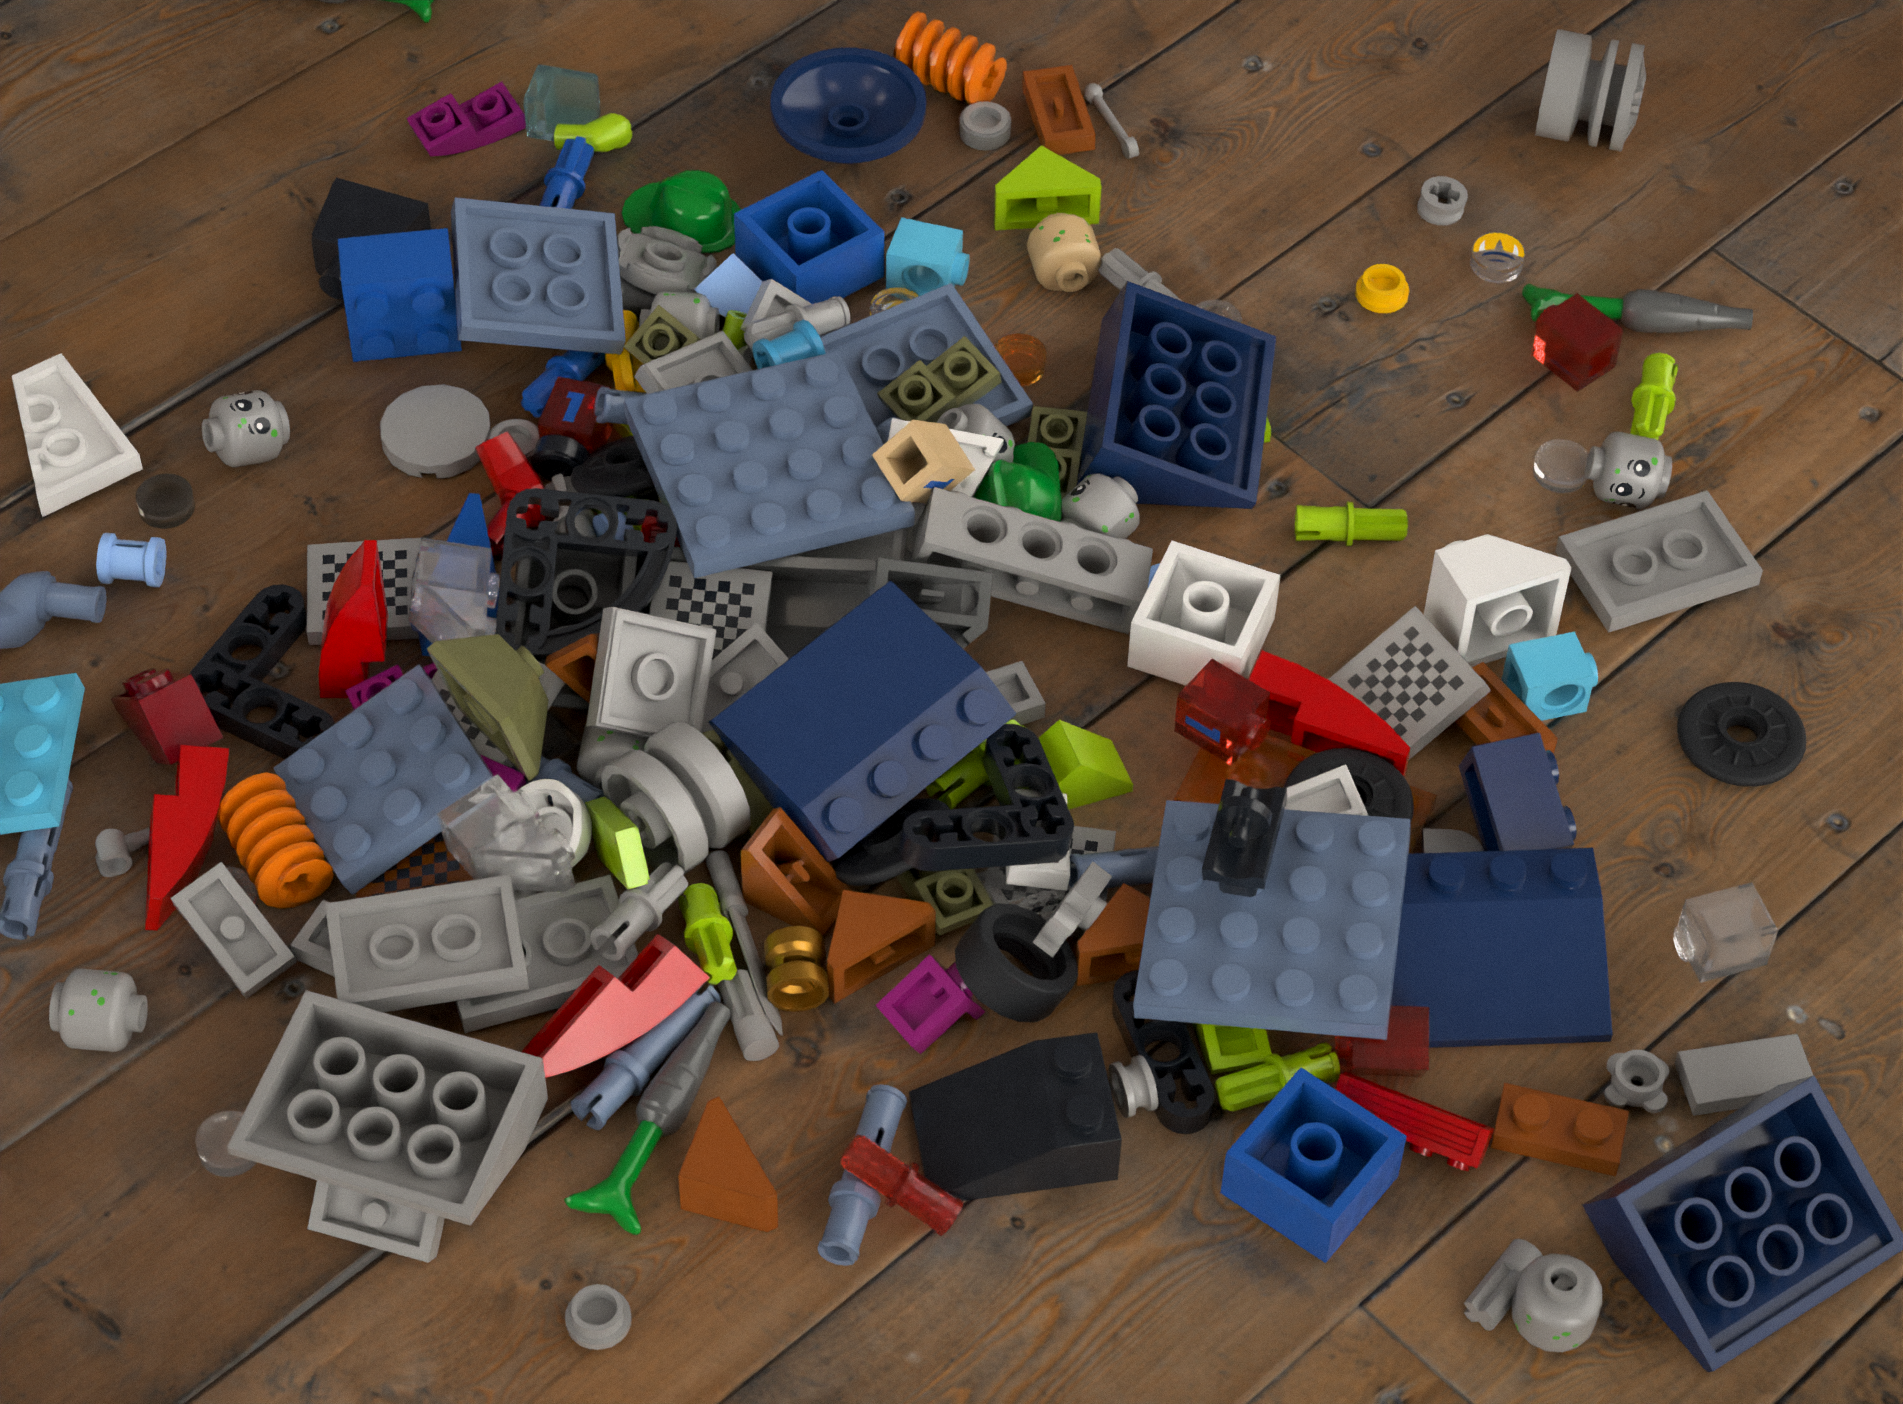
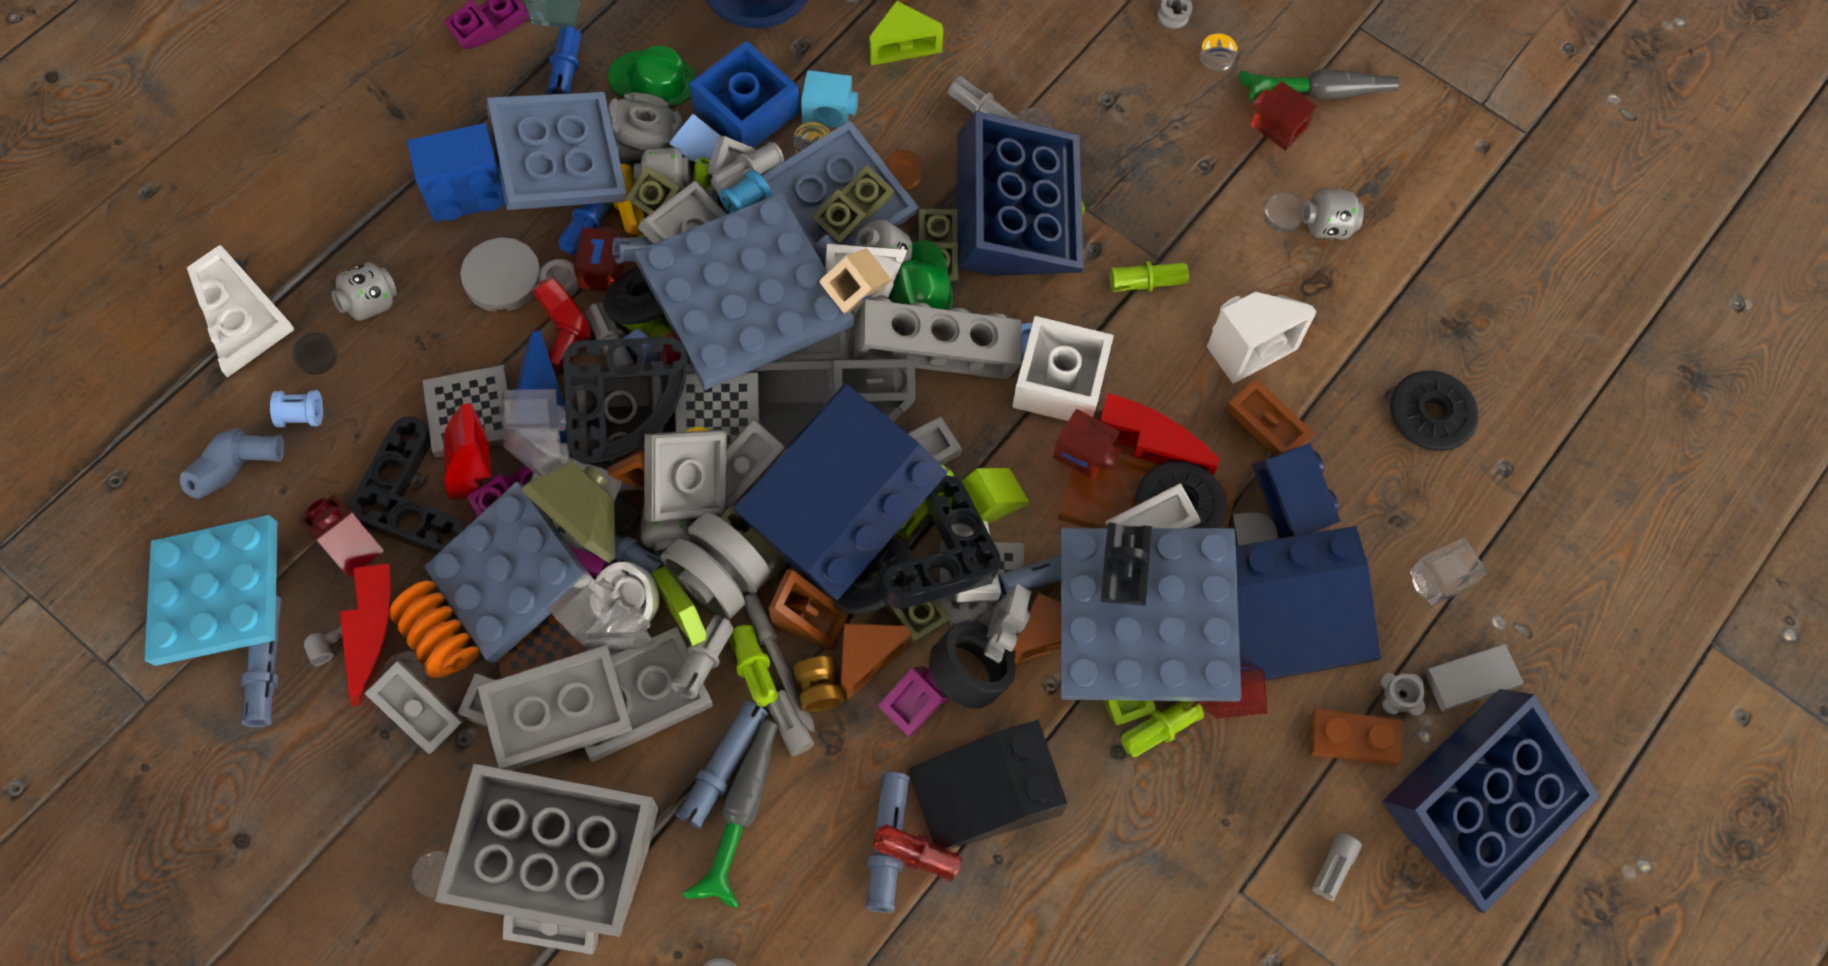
camera: 10 degrees left, 15 degrees up
(97, 1010) = (325, 783): light grey head -> none
(357, 212) = (423, 112): black torso -> none
(557, 456) = (591, 288): black tile -> none
(602, 133) = (584, 20): lime arm -> none
(614, 1011) = (695, 739): slope -> none
(724, 1176) = (790, 857): dark orange slope -> none
(1062, 250) = (923, 82): tan head -> none
(1102, 506) = (978, 289): light grey head -> none
(1133, 1086) = (1064, 746): light grey bush -> none
(1187, 1066) = (1083, 747): black beam -> none
(1312, 1164) = (1199, 799): blue brick -> none
(1382, 289) = (1144, 86): yellow plate -> none
(1413, 680) = (1210, 401): light grey tile -> none
(1424, 1124) = (1257, 747): red piece -> none
(1551, 675) = (1302, 383): medium azure brick -> none
(1557, 1302) = (1378, 883): light grey head -> none
(1654, 395) = (1340, 153): lime axle -> none
(1658, 561) = (1361, 282): light grey plate -> none

